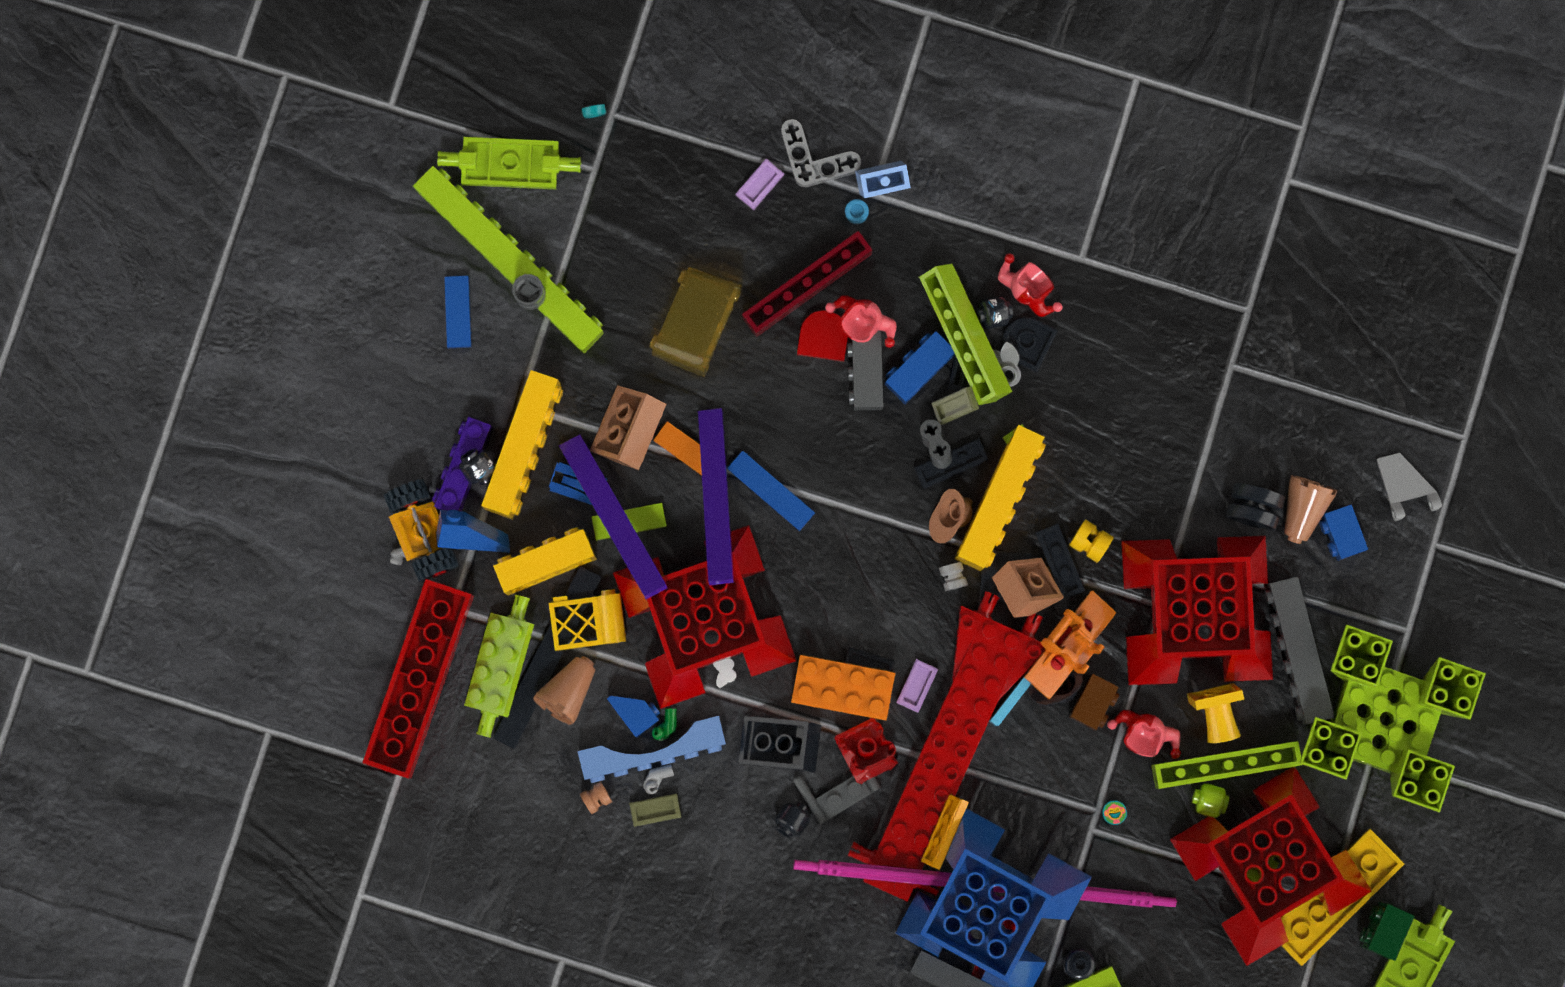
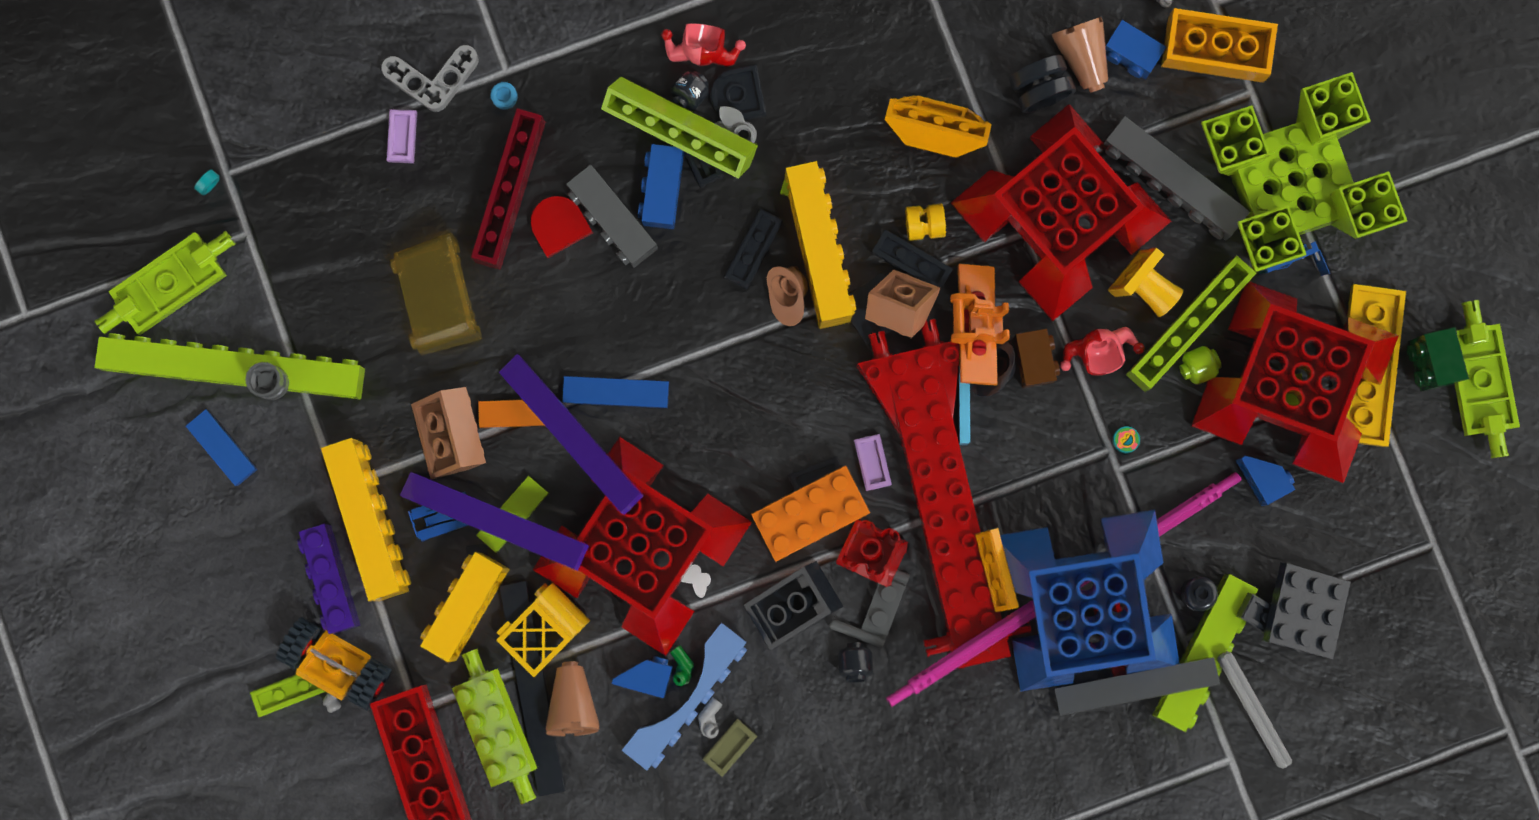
camera: 35 degrees left, 0 degrees up
(368, 524) = (283, 694): none -> lime tile
(464, 531) = (376, 633): blue slope -> none
(476, 466) = (338, 570): black head -> none
(596, 797) = (669, 778): nougat wheel -> none
(863, 319) = (580, 181): coral piece -> none
(882, 179) = (504, 49): light blue brick -> none
(936, 444) = (727, 241): dark grey axle -> none
(953, 576) = (830, 344): light grey wheel -> none
(955, 405) = (718, 195): olive tile -> none
(1155, 477) = (937, 125): none -> light orange wedge
(1193, 920) = (1266, 479): none -> blue slope
(1355, 779) = (1321, 265): none -> blue piece
(1408, 578) = (1219, 45): none -> light orange brick

